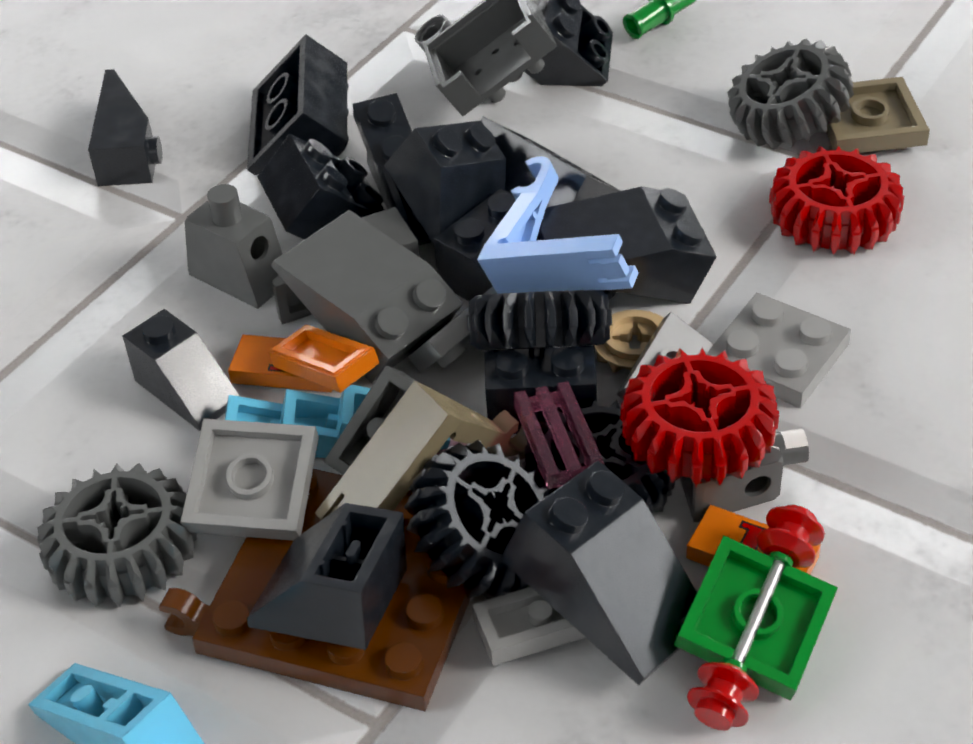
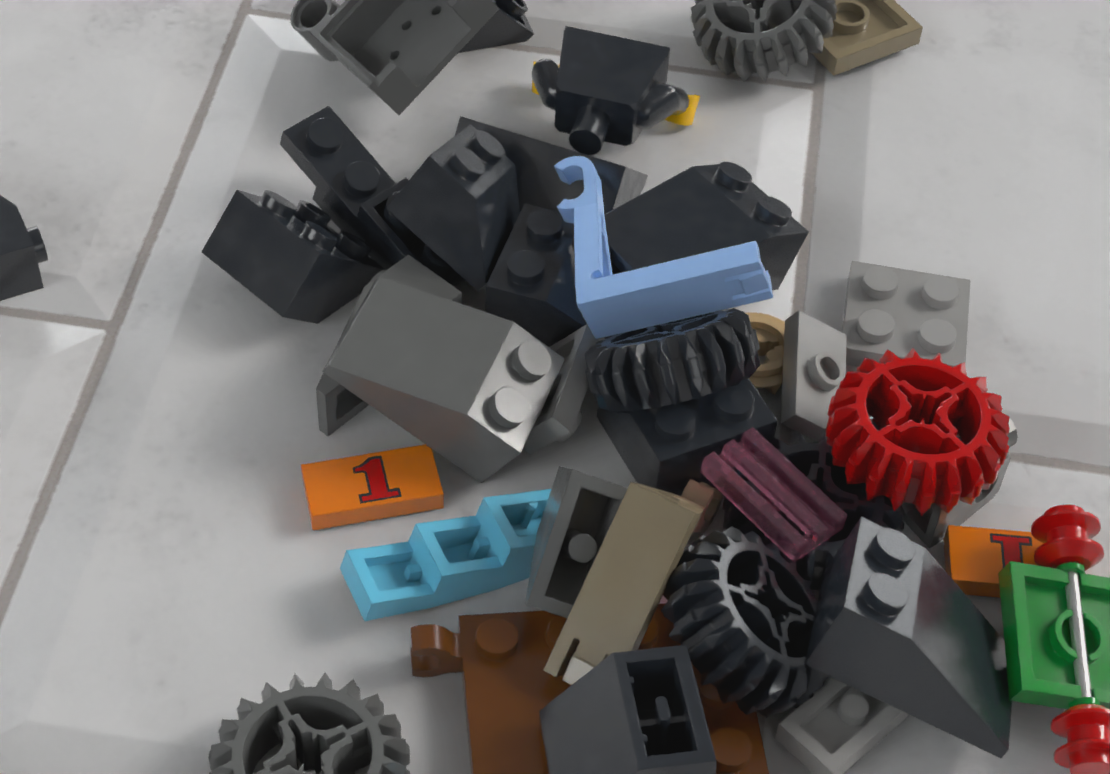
camera: 30 degrees left, 5 degrees up
(178, 368) = (254, 533): black slope -> none
(232, 246) = (235, 356): dark grey torso -> none
(250, 479) = (453, 653): light grey plate -> none
(300, 98) = (190, 149): black slope -> none
(323, 357) = (436, 471): orange tile -> none
(624, 122) = (609, 89): none -> black torso
(836, 200) = (873, 130): red gear -> none

